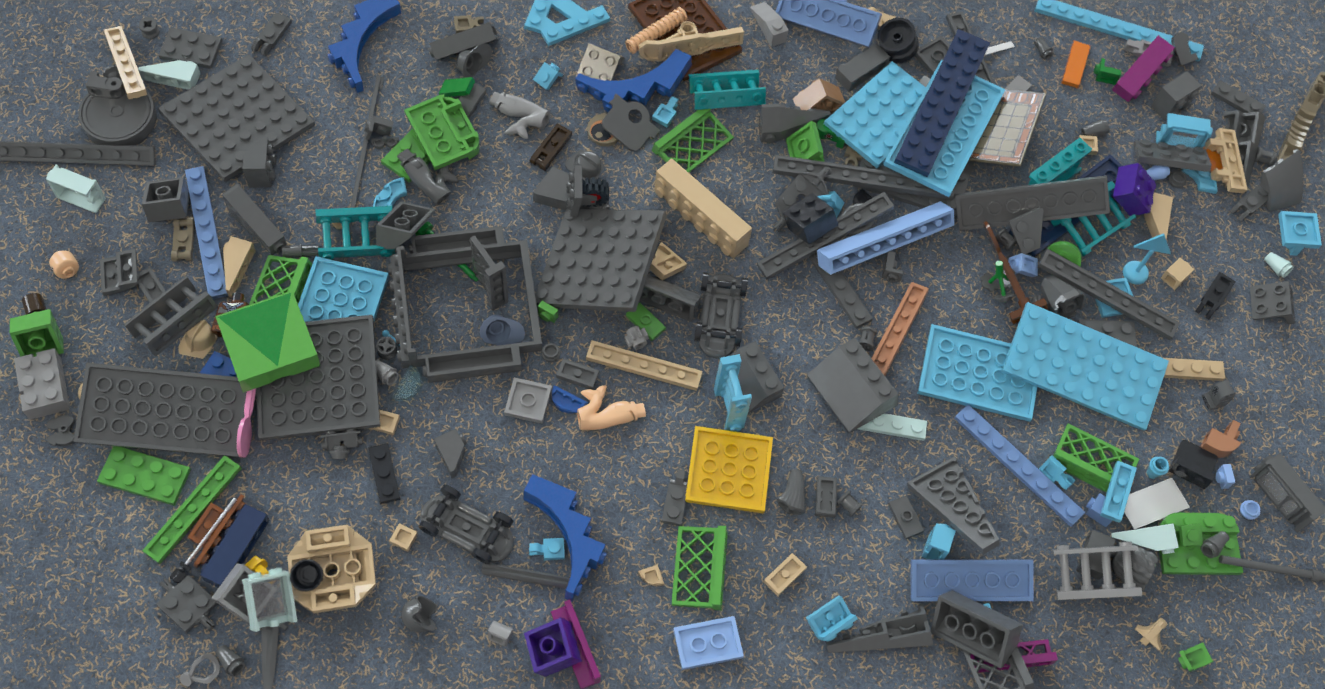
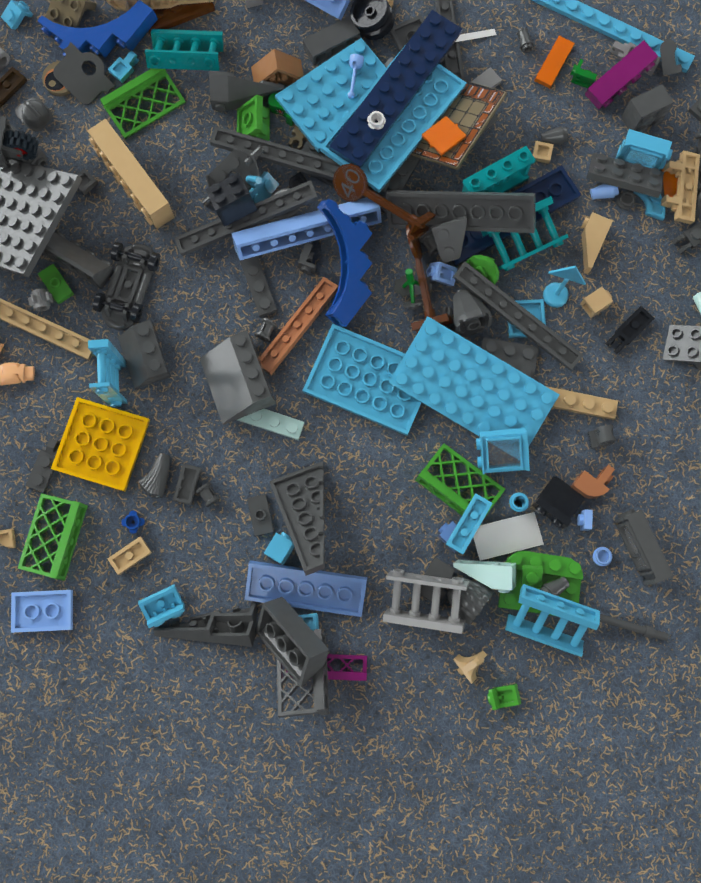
camera: 15 degrees right, 15 degrees up
(666, 262) = (85, 226): tan wing -> none
(780, 547) = (129, 518): none -> blue plate
(897, 83) = (356, 62): none -> light blue hinge
(921, 191) = (352, 185): none -> reddish brown piece
(936, 126) = (376, 115): none -> white plate
(941, 264) = (354, 263): none -> blue arch
(998, 138) = (444, 135): none -> orange piece
(1019, 465) = (384, 479): medium blue plate -> none
(1055, 472) = (415, 491): medium azure plate -> none
(1130, 420) = (503, 450): none -> medium azure window
(1134, 189) = (572, 207): dark purple brick -> none
(1220, 555) = (556, 606): none -> medium azure fence

